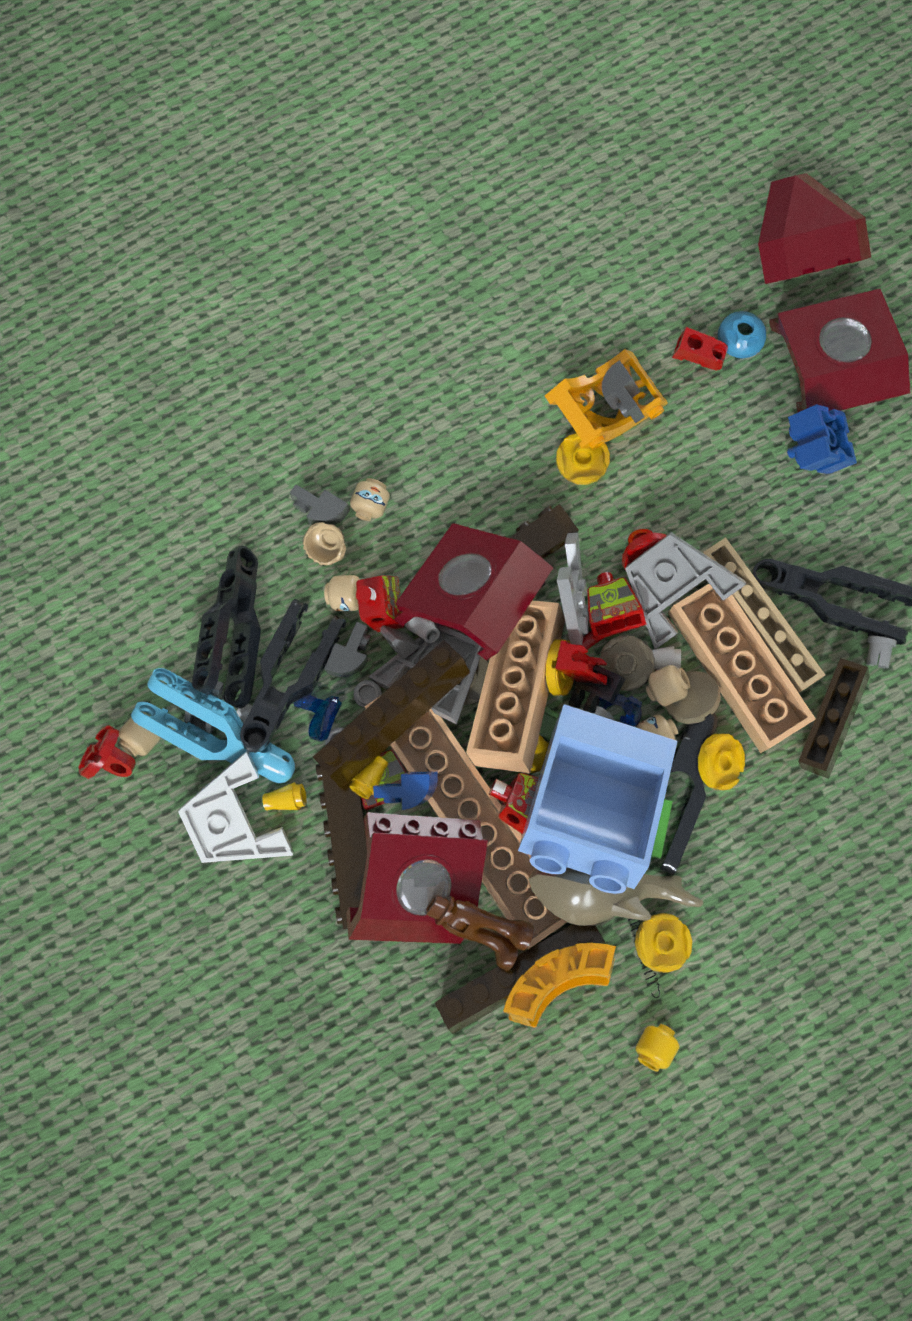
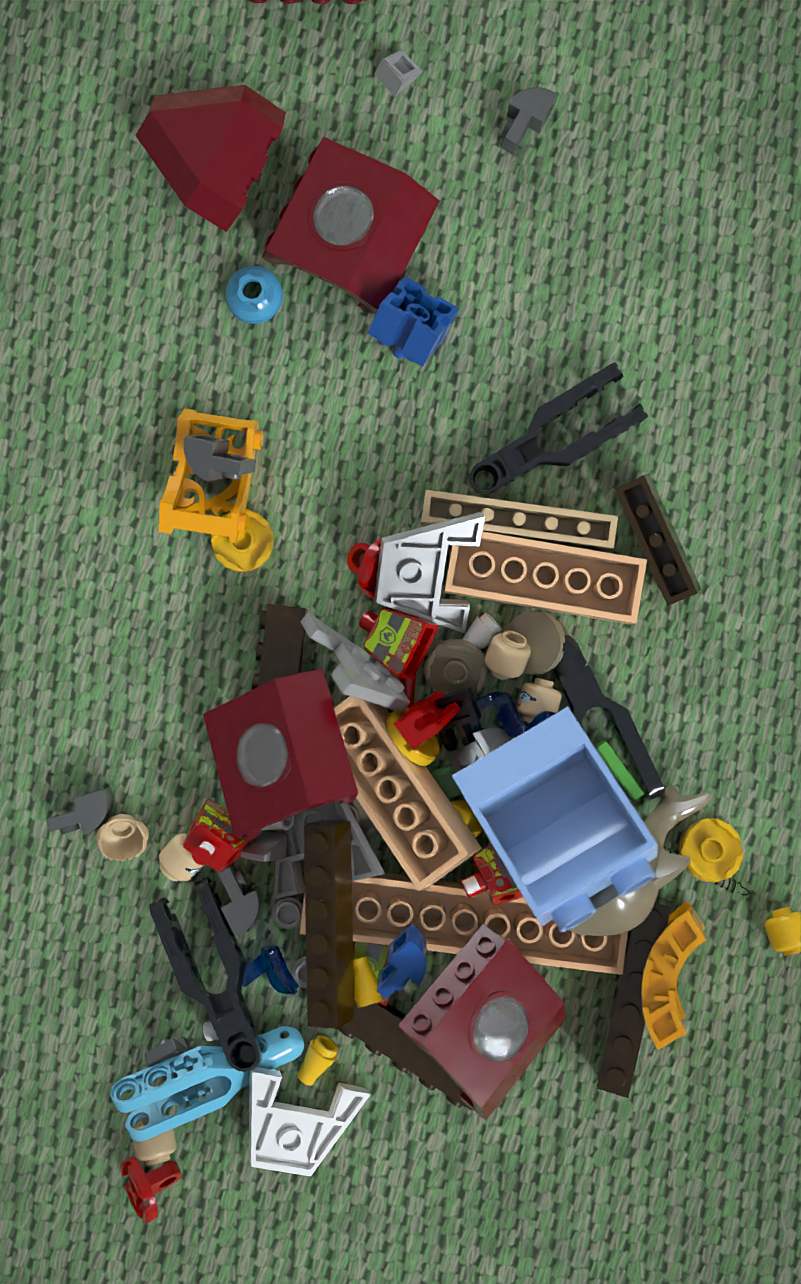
camera: 50 degrees left, 10 degrees up
(234, 600) = (103, 957): black piece -> none
(369, 499) = (116, 763): tan head -> none
(471, 923) = (561, 1013): reddish brown piece -> none
(700, 349) = (235, 346): red leg -> none
(721, 761) = (609, 668): yellow tile -> none
(881, 646) = (633, 438): light grey bush -> none

